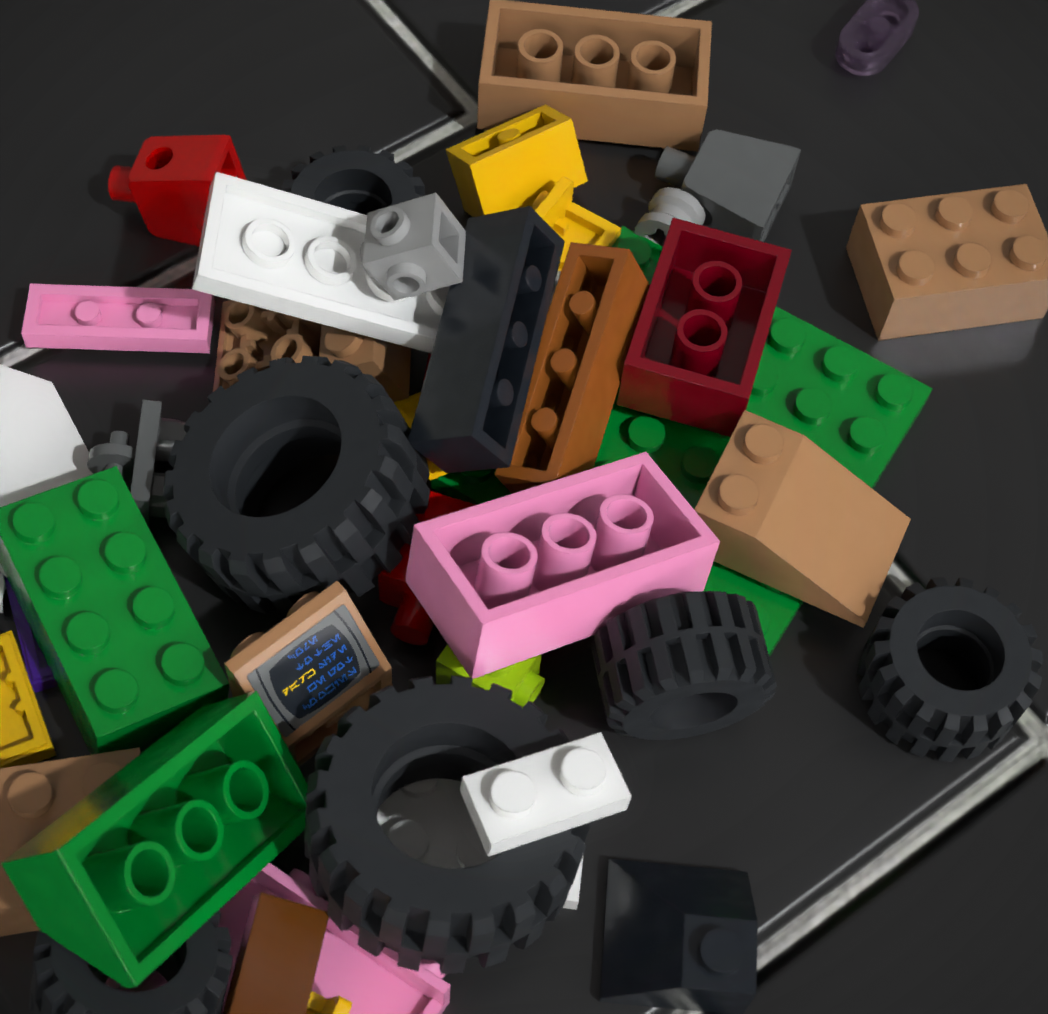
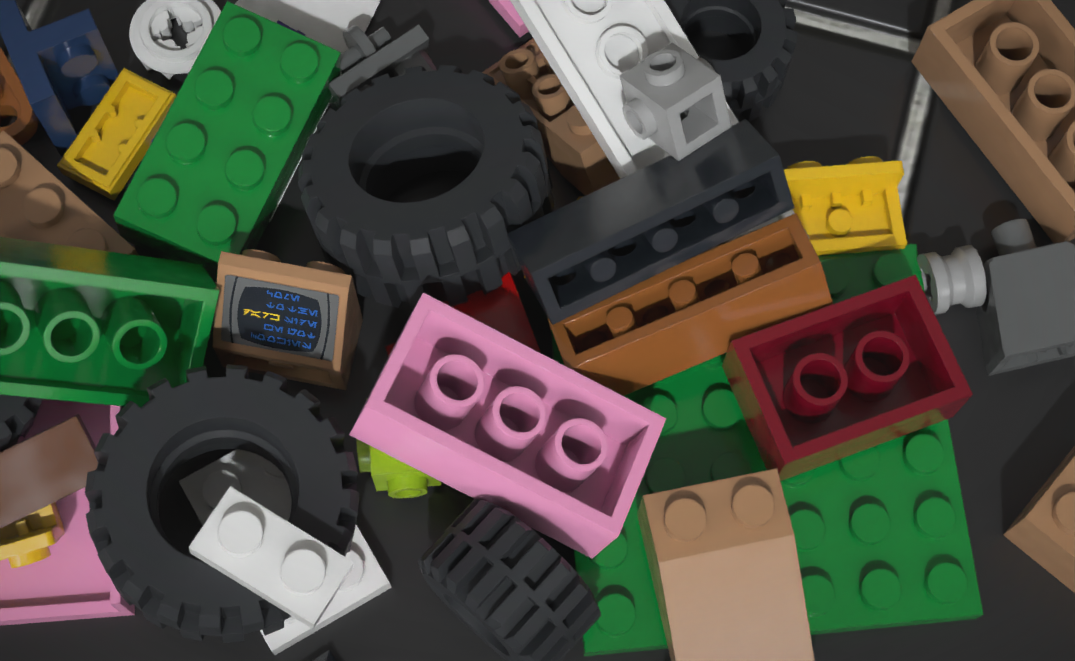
camera: 55 degrees right, 10 degrees up
(516, 162) = (887, 117): yellow brick -> none

